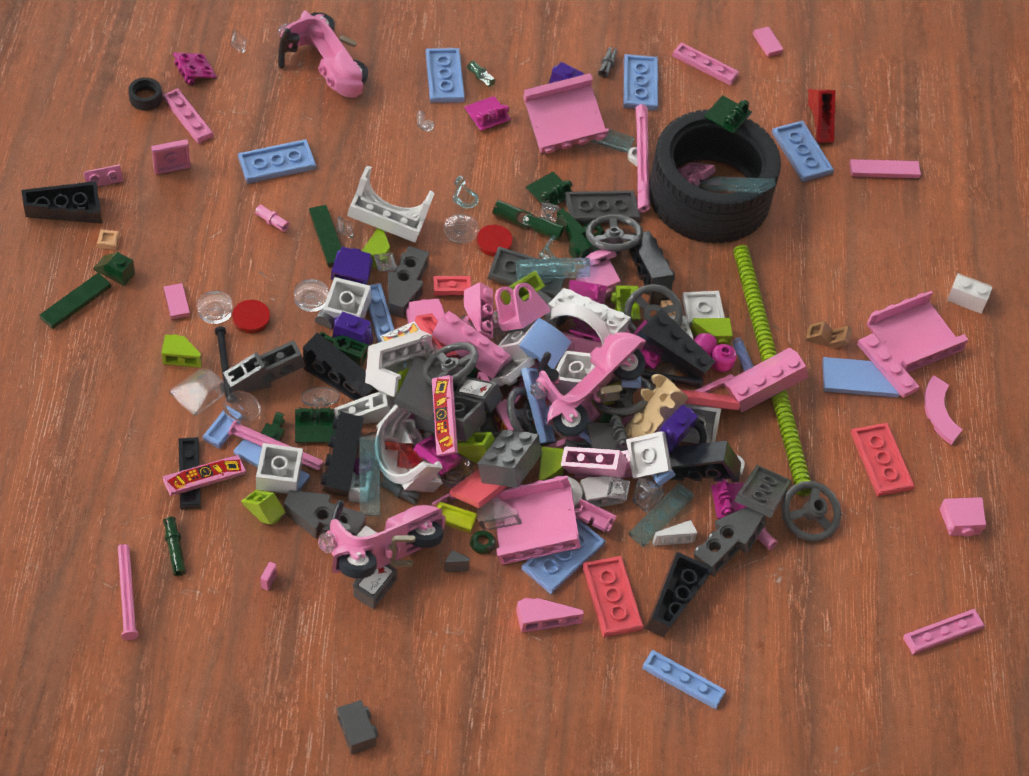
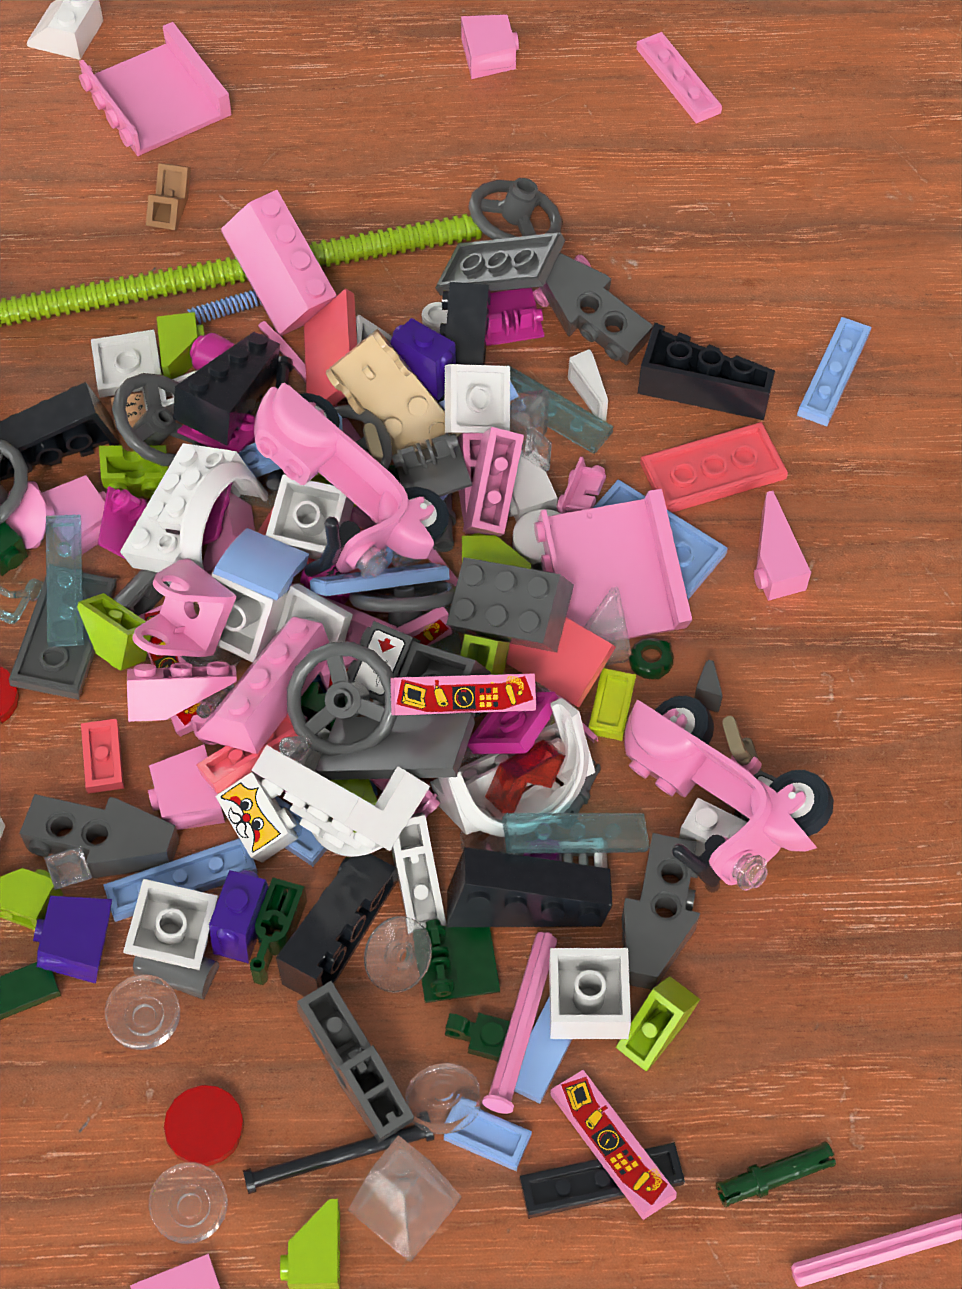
camera: 90 degrees left, 5 degrees up
(268, 576) = (804, 988): bright pink tile -> none
(724, 357) = (235, 323): dark pink head -> none
(855, 378) = (244, 159): light blue tile -> none
(882, 459) = (397, 138): coral tile -> none
(888, 365) = (225, 122): bright pink plate -> none
(937, 412) = (296, 74): bright pink tile -> none

